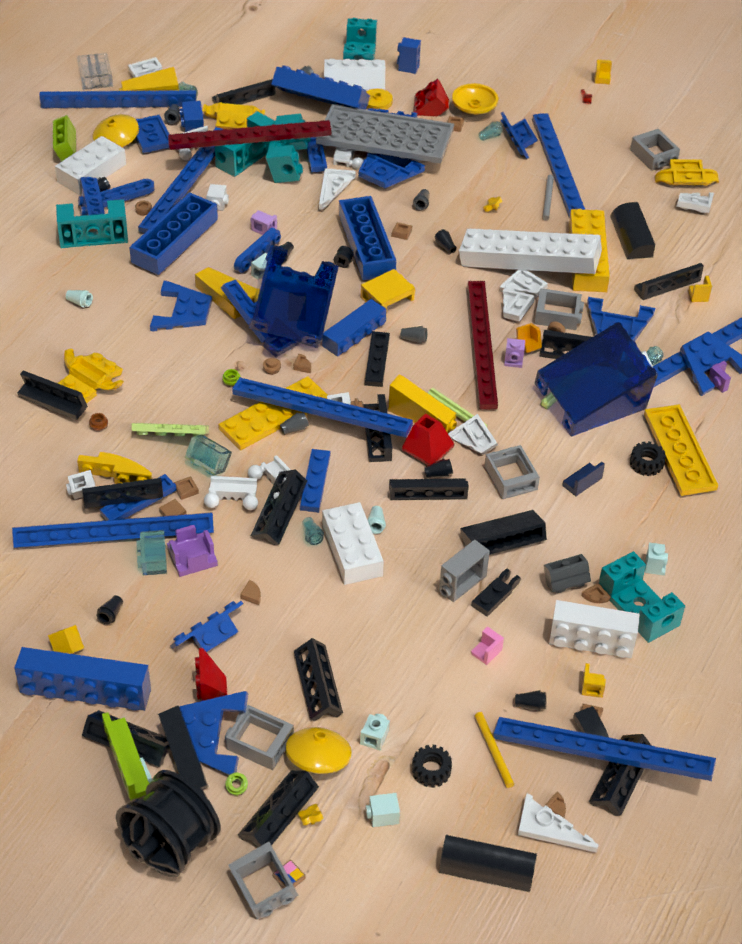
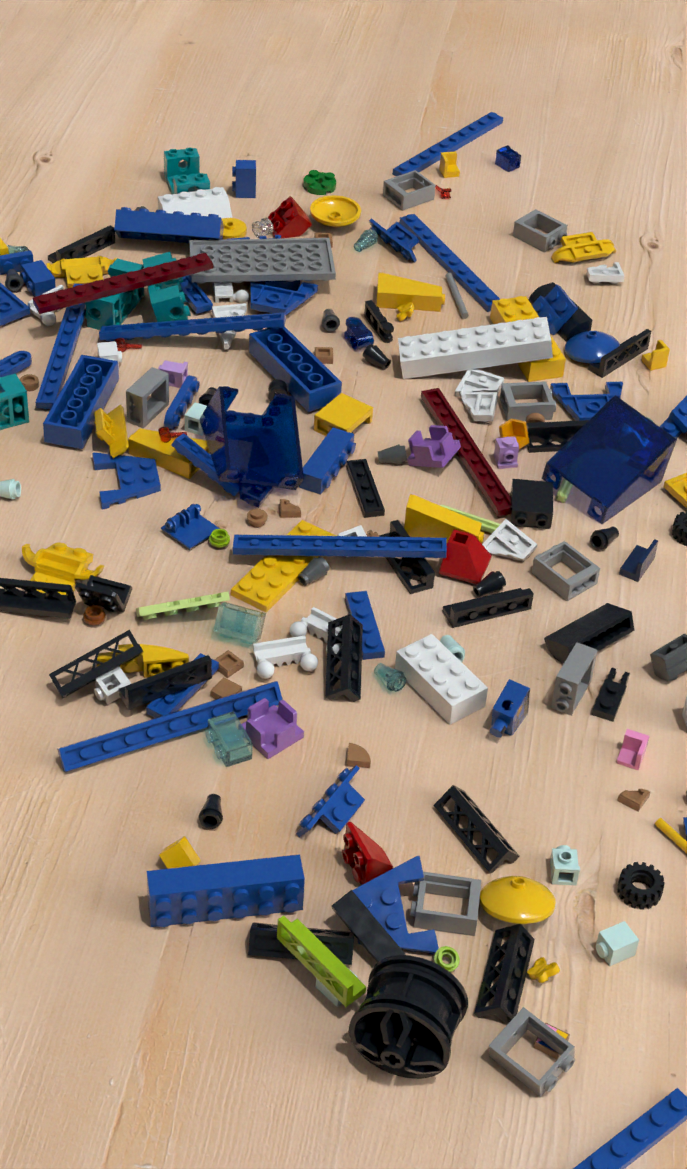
camera: 20 degrees left, 5 degrees down
(62, 474) = (103, 668): none -> black fence
(113, 404) = (104, 593): none -> black bracket
(186, 263) = (112, 430): none -> yellow bracket
(211, 362) = (189, 526): none -> blue hinge
(215, 236) = (154, 383): none -> light grey window
(224, 277) = (166, 435): none -> clear red hand
(234, 190) = (122, 346): none -> clear red hand
(298, 184) = (198, 326): none -> blue plate
(395, 584) = (509, 716): none -> blue torso
(405, 103) = (262, 227): none -> clear wheel
(438, 217) = (358, 334): none -> clear blue piece
(449, 338) = (434, 450): none -> medium lavender panel
(464, 210) = (378, 321): none -> black hinge
(468, 689) = (634, 799): none -> medium nougat tile
(478, 69) = (319, 182): none -> green plate
(494, 183) = (396, 291): none -> yellow slope
(512, 404) = (531, 503): none -> black panel
(561, 80) = (395, 189): none -> light grey window
(563, 449) = (602, 538): none -> black cone
(613, 52) = (449, 144): none -> blue plate
(623, 228) = (556, 307): none -> blue plate
(643, 268) = (590, 346): none -> blue dish
(662, 77) = (507, 159): none -> clear blue window

